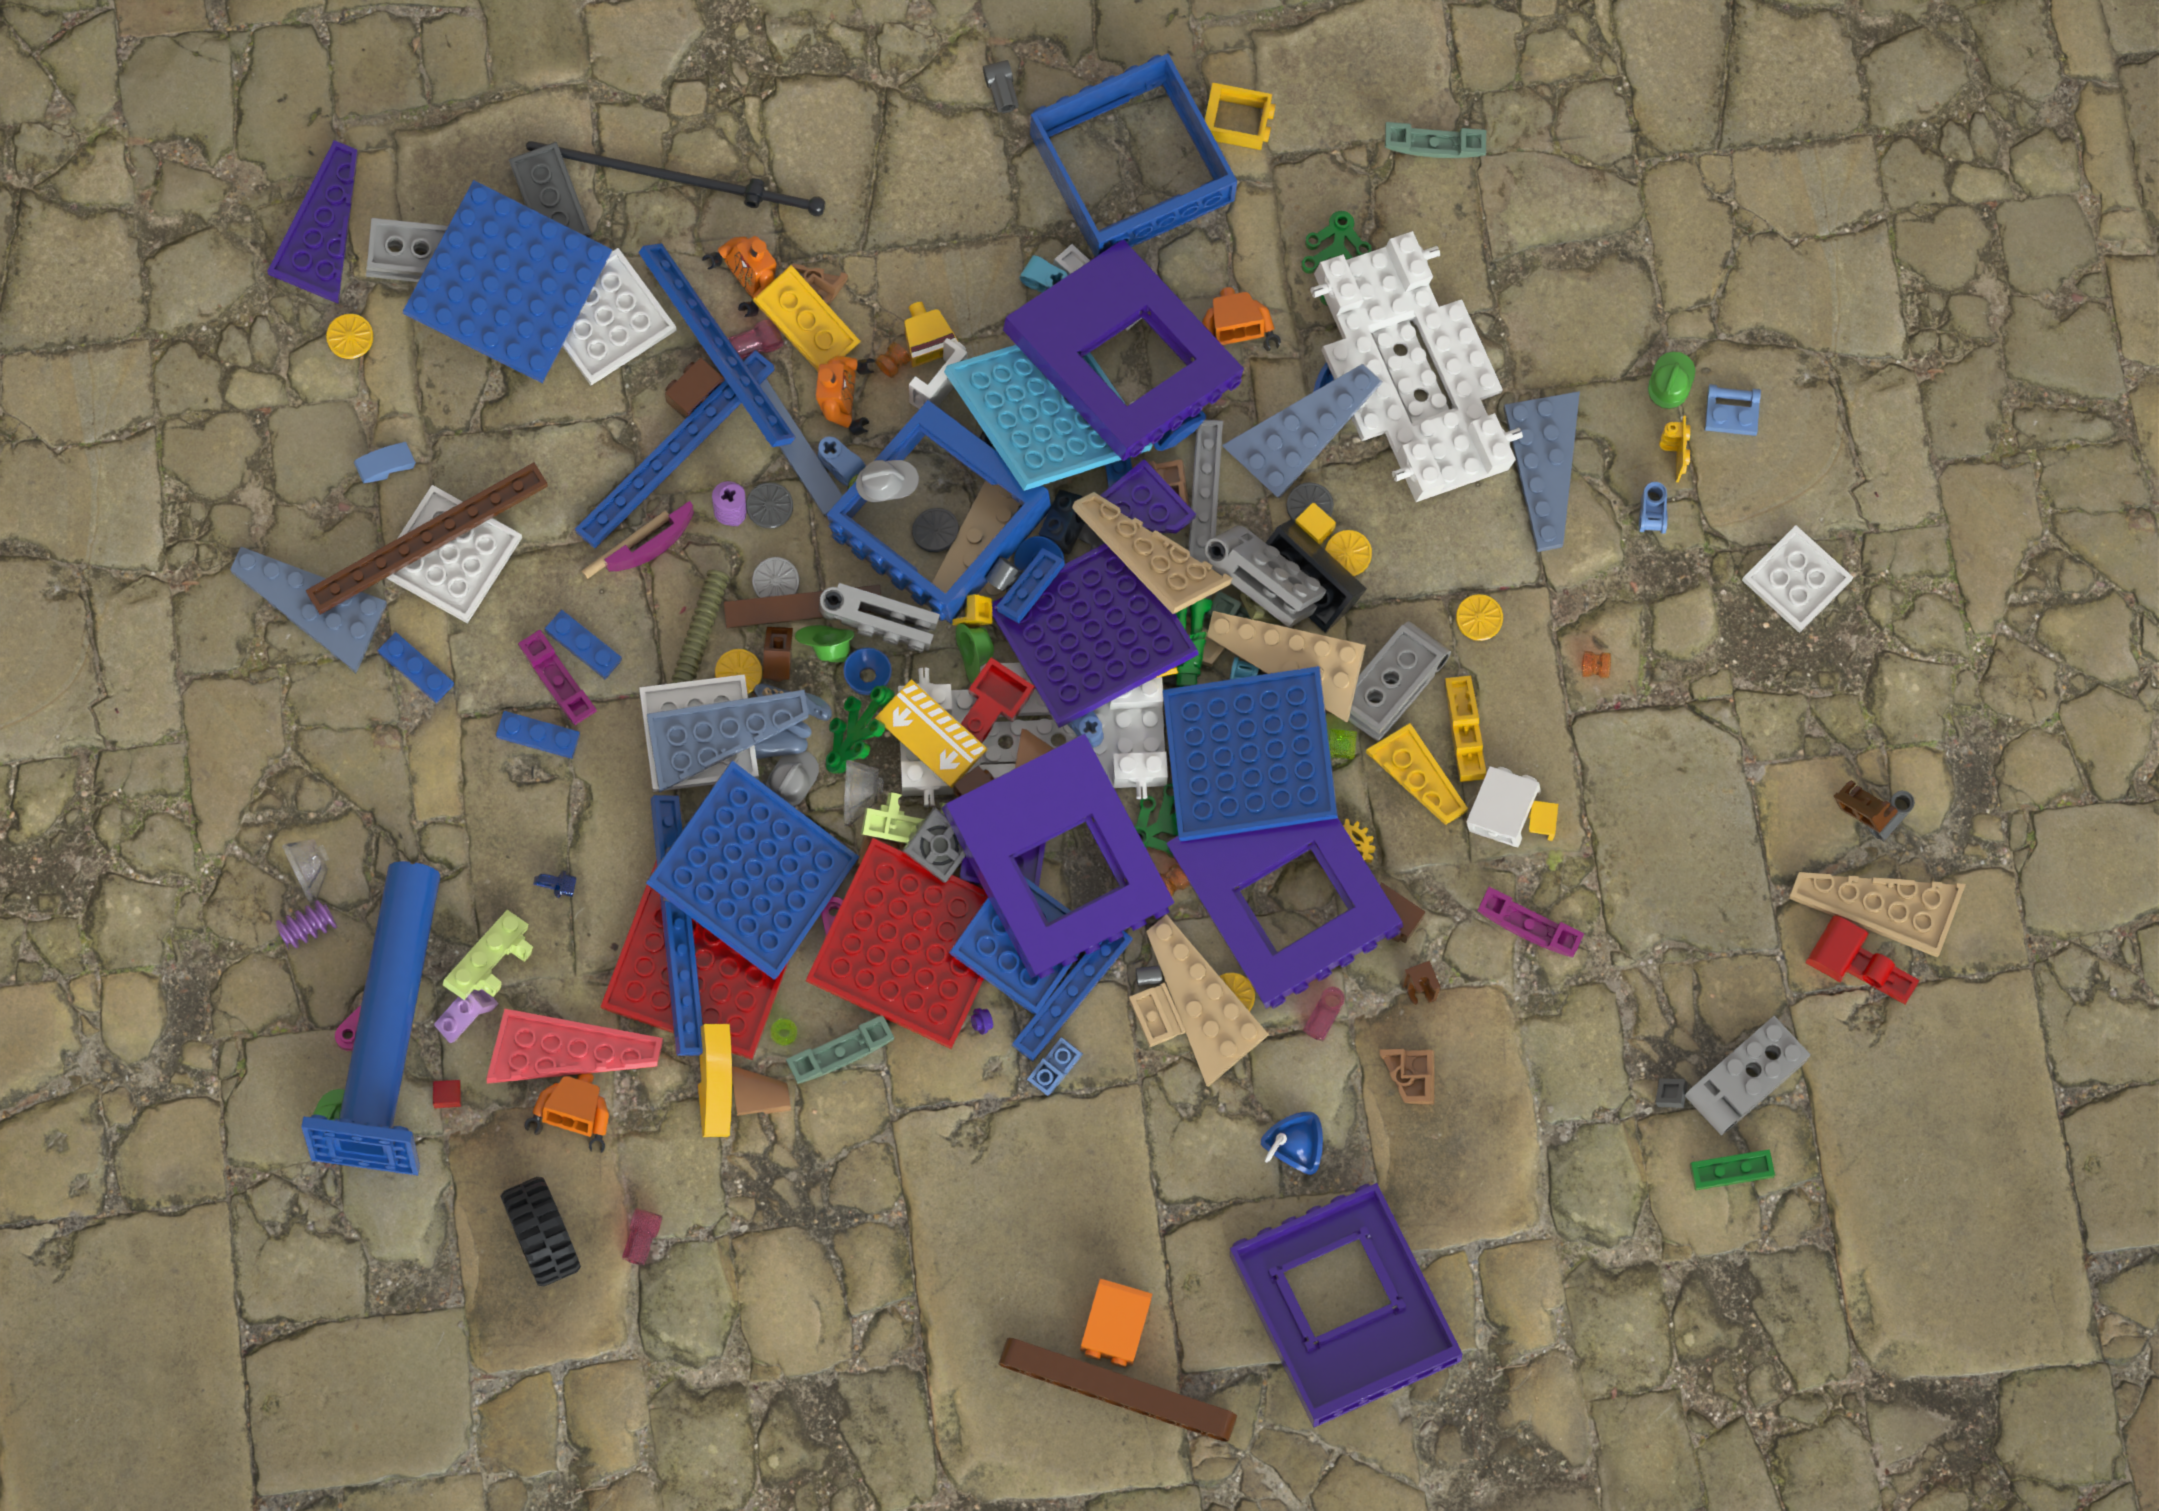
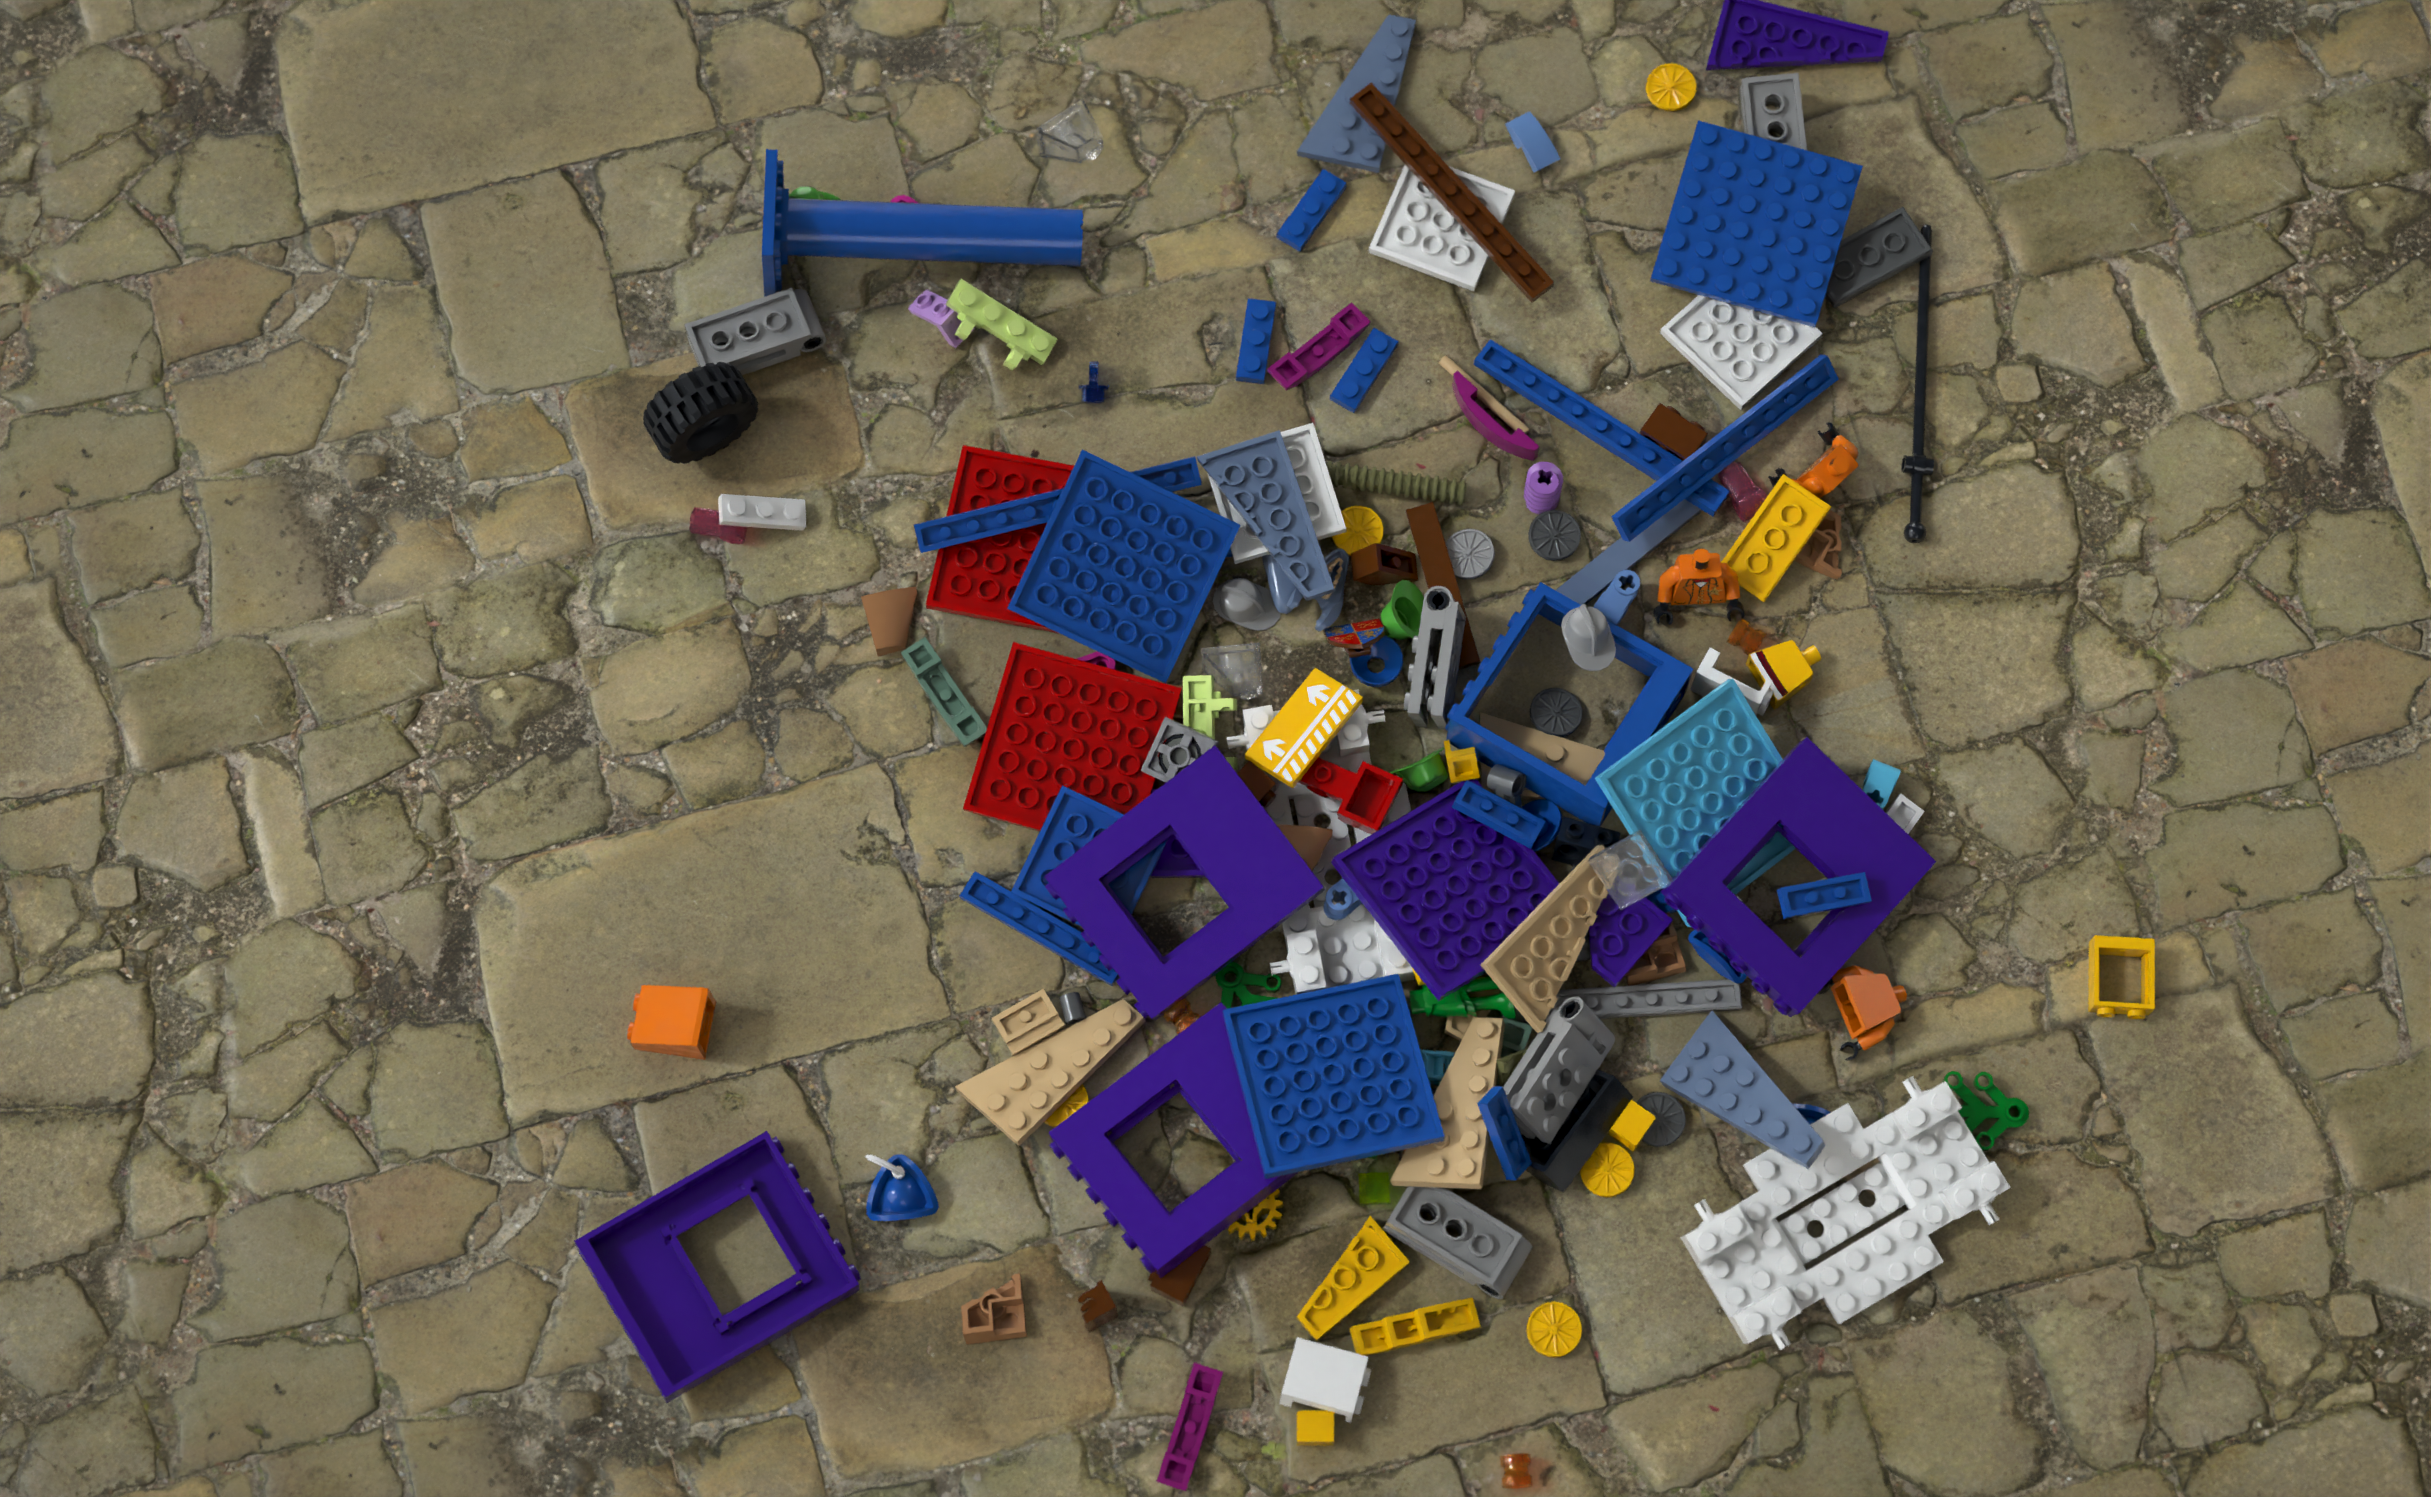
camera: 90 degrees right, 0 degrees up
(305, 924) = (1012, 148): medium lavender piece -> none
(447, 1094) = (852, 312): red slope -> none
(452, 1159) = (758, 332): none -> light grey hinge
(553, 1047) = (911, 405): coral wing -> none
(574, 1107) = (848, 435): orange torso -> none
(639, 1194) = (762, 512): none -> white plate
(716, 1080) = (894, 570): yellow slope -> none
(784, 1024) = (957, 627): clear neon green plate -> none
(844, 682) = (1356, 637): none -> shield
(856, 729) = (1309, 654): green plant -> none
(981, 1020) = (997, 836): dark purple plate -> none
(999, 79) = (2109, 706): dark grey piece -> none
(1055, 1066) = (957, 922): medium blue slope -> none
(1103, 480) = (1630, 870): none -> clear plate
(1106, 96) = (2102, 810): blue door -> none
(1117, 1389) = (602, 1035): reddish brown beam -> none
(1148, 328) = (1824, 895): none -> blue plate
(1318, 620) = (1504, 1133): none -> blue plate
(1324, 1015) = (1049, 1206): clear pink piece -> none
(1435, 143) = (2138, 1207): sand green slope -> none
(1545, 461) = (1761, 1384): sand blue wing -> none

